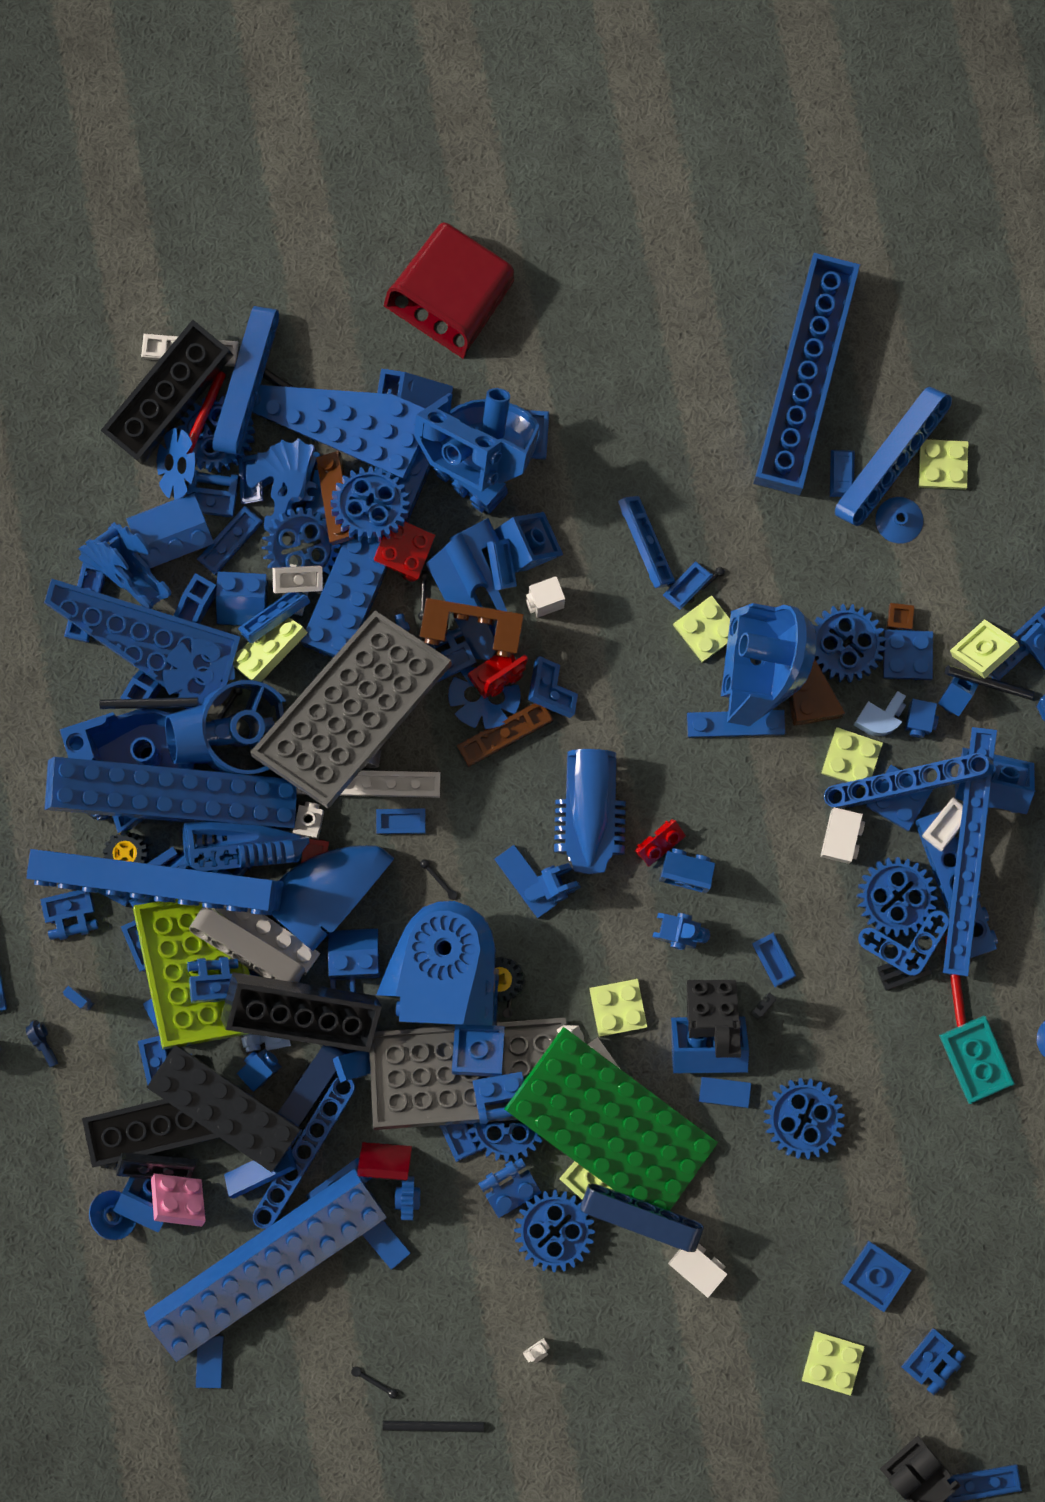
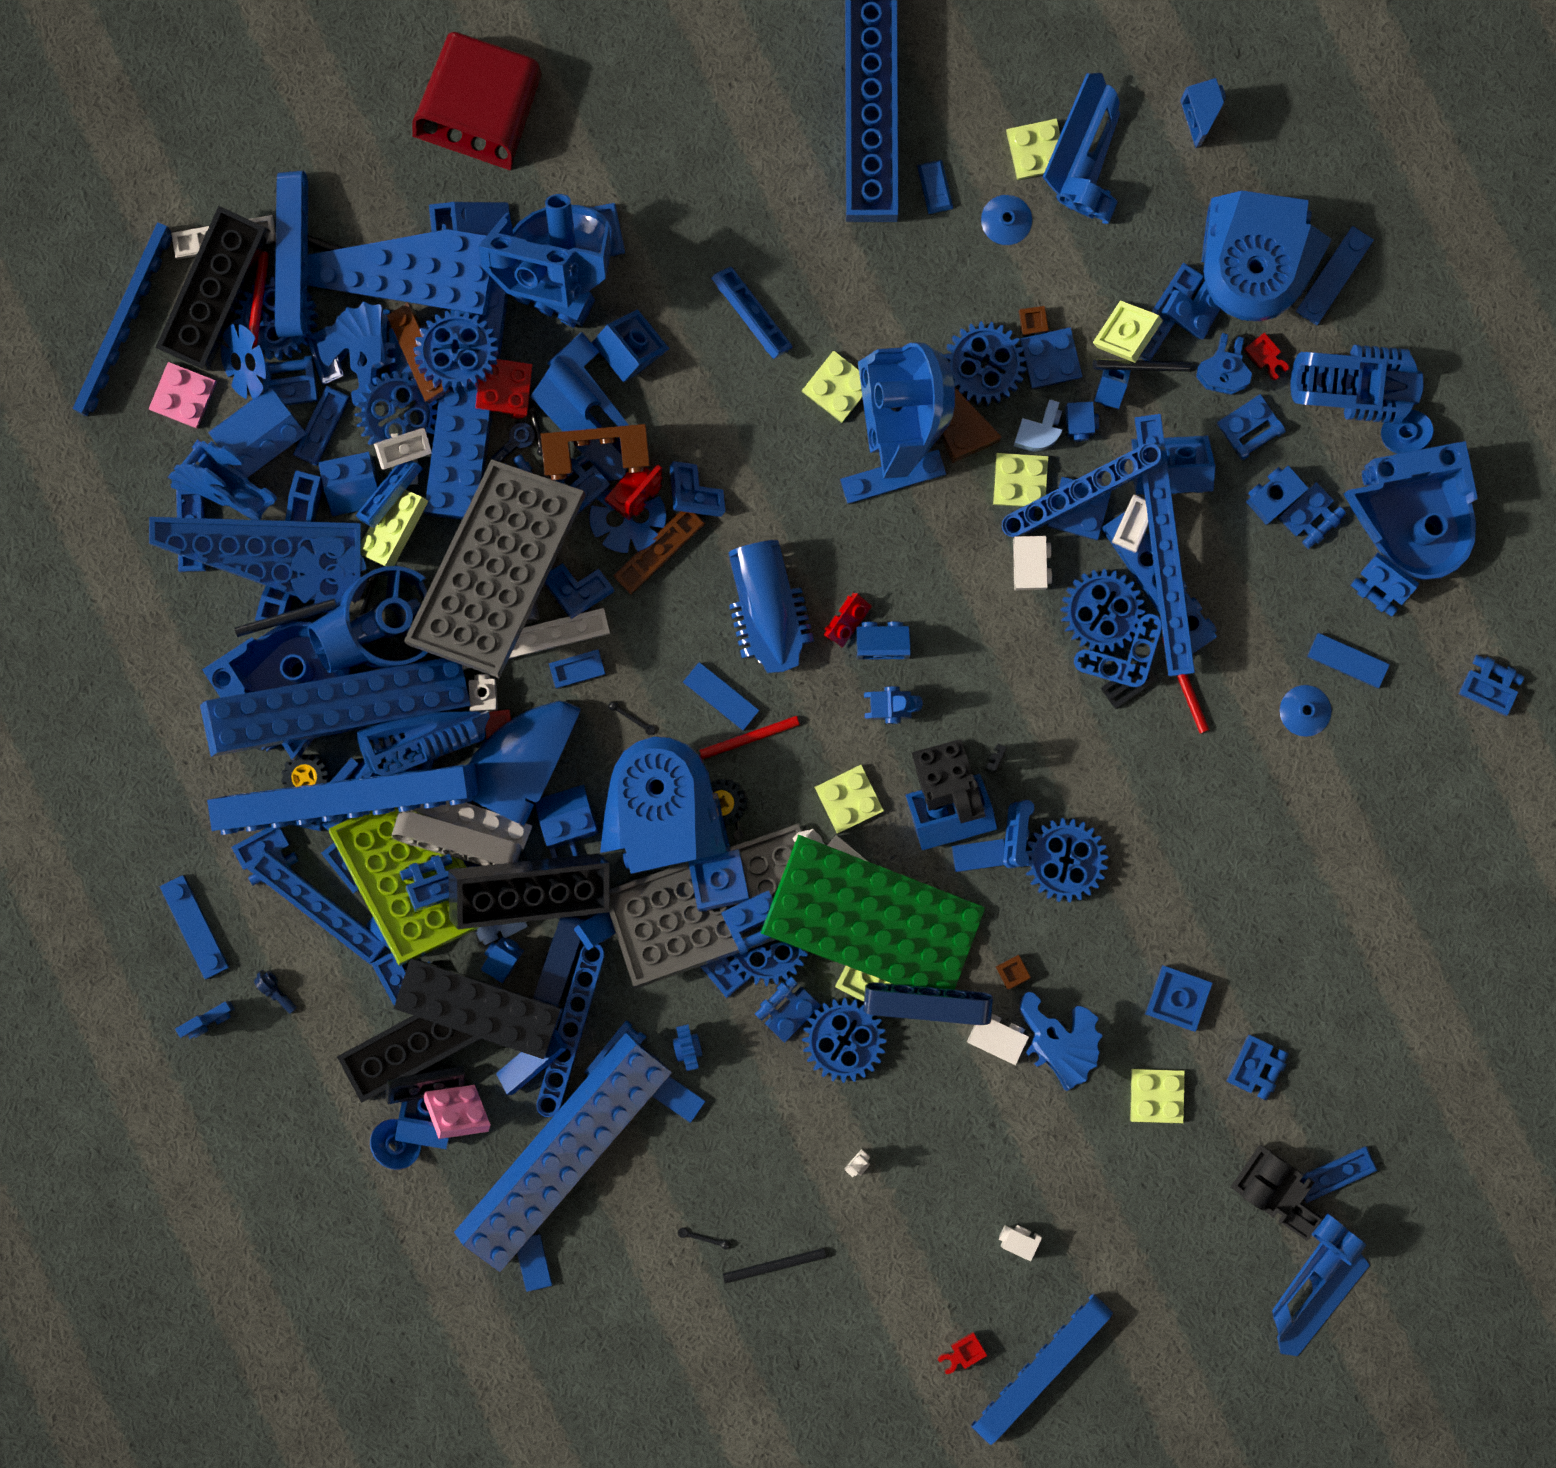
camera: 10 degrees left, 5 degrees up
(73, 405) = (127, 310): none -> blue plate
(78, 998) = (298, 937): blue tile -> none
(103, 974) = (316, 905): none -> blue tile
(112, 480) = (182, 395): none -> bright pink plate
(384, 1161) = (654, 1016): dark red tile -> none
(407, 597) = (520, 436): none -> dark blue plate
(418, 754) = (577, 596): none -> blue plate
(501, 564) = (608, 376): blue tile -> none
(541, 926) = (749, 737): none -> red bar
(545, 597) = (663, 399): white brick -> none
(551, 886) = (748, 693): blue hinge -> none
(668, 1466) = (1019, 1241): none -> white brick
(687, 585) = (806, 346): blue tile -> none
(718, 572) = (812, 359): black hinge -> none
(727, 1209) = (1012, 972): none -> reddish brown plate
(759, 1301) = (1070, 1053): none -> blue animal
(765, 1082) = (1017, 834): none -> blue plate
(774, 959) = (994, 708): blue tile -> none
(893, 456) = (983, 154): blue beam -> none
(972, 492) = (1071, 168): none -> blue panel
(976, 1059) = (1225, 754): teal tile -> none

